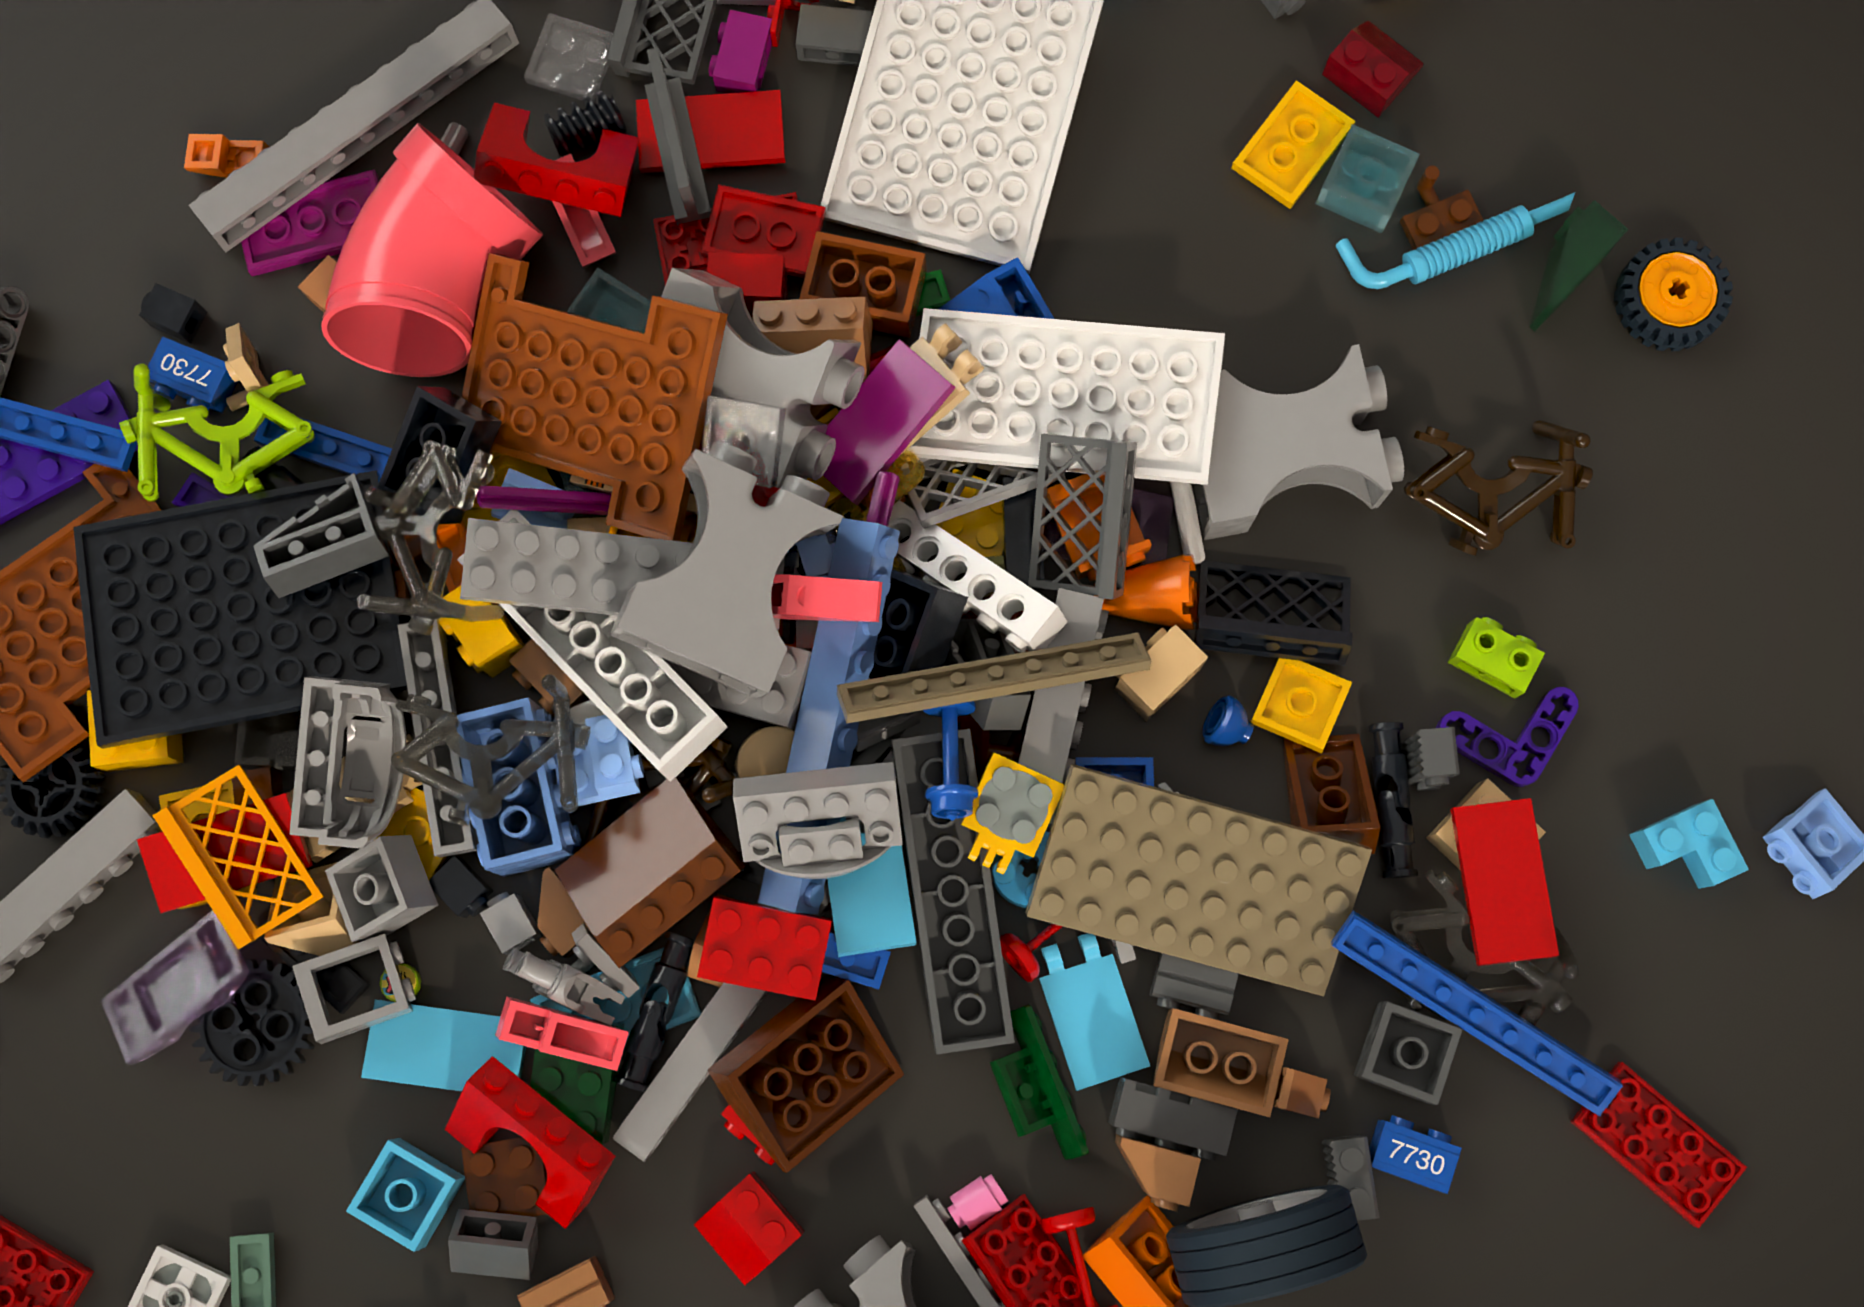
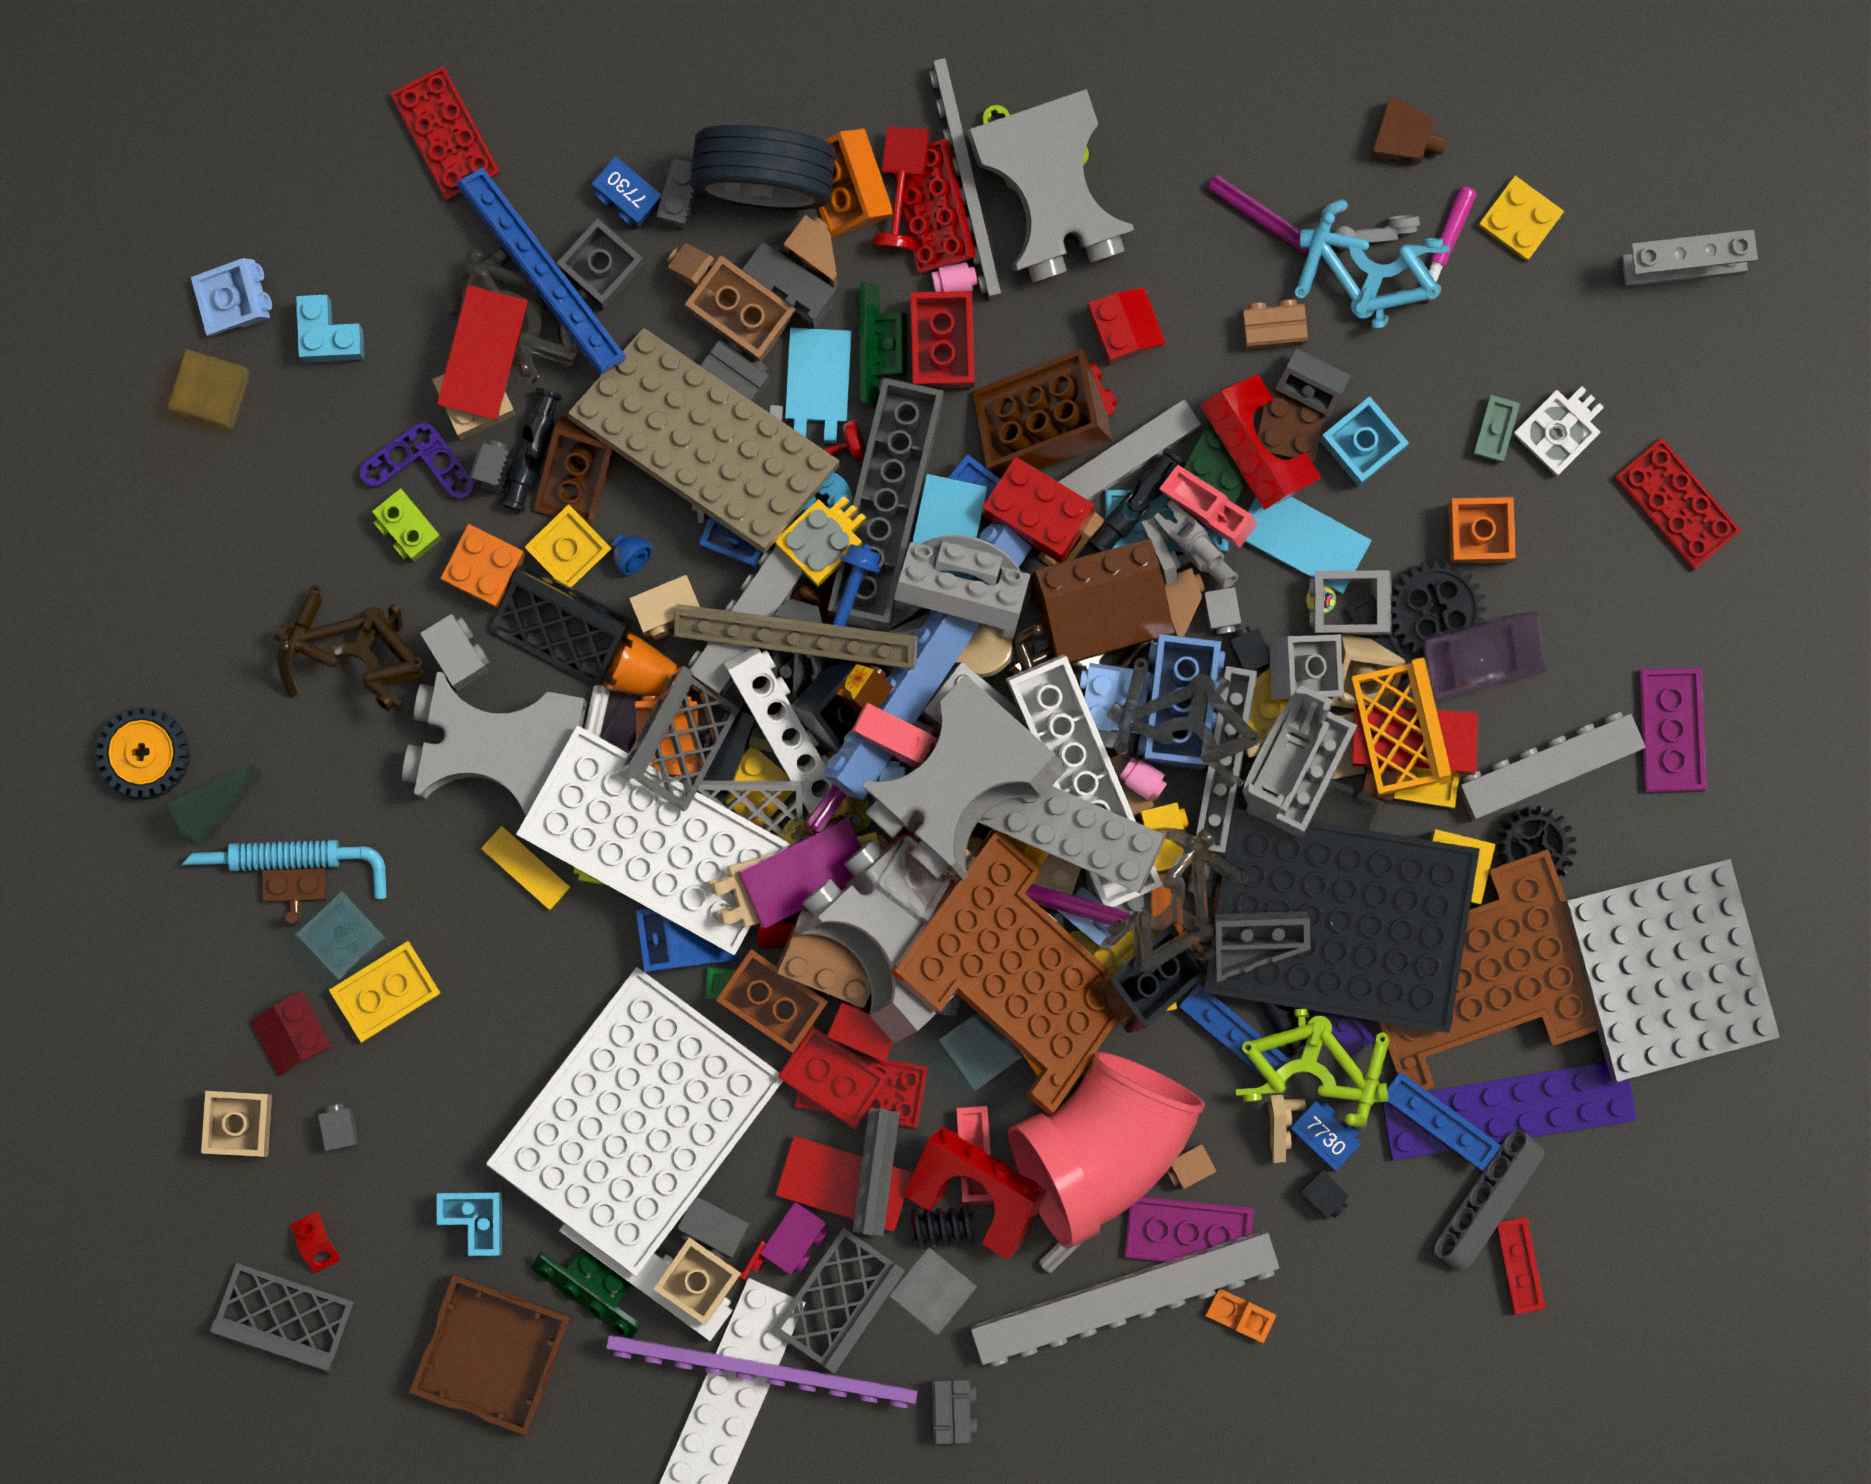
camera: 165 degrees left, 5 degrees up
(227, 1138) = (1481, 530): none -> orange brick
(524, 681) = (1143, 779): none -> bright pink brick
(887, 644) = (864, 686): none -> reddish brown brick
(962, 1120) = (942, 339): none -> red brick
(1165, 315) = (526, 868): none -> yellow tile
(1379, 530) = (454, 651): none -> light grey brick
(1390, 642) = (483, 566): none -> orange brick
(1793, 724) = (208, 389): none -> clear yellow brick

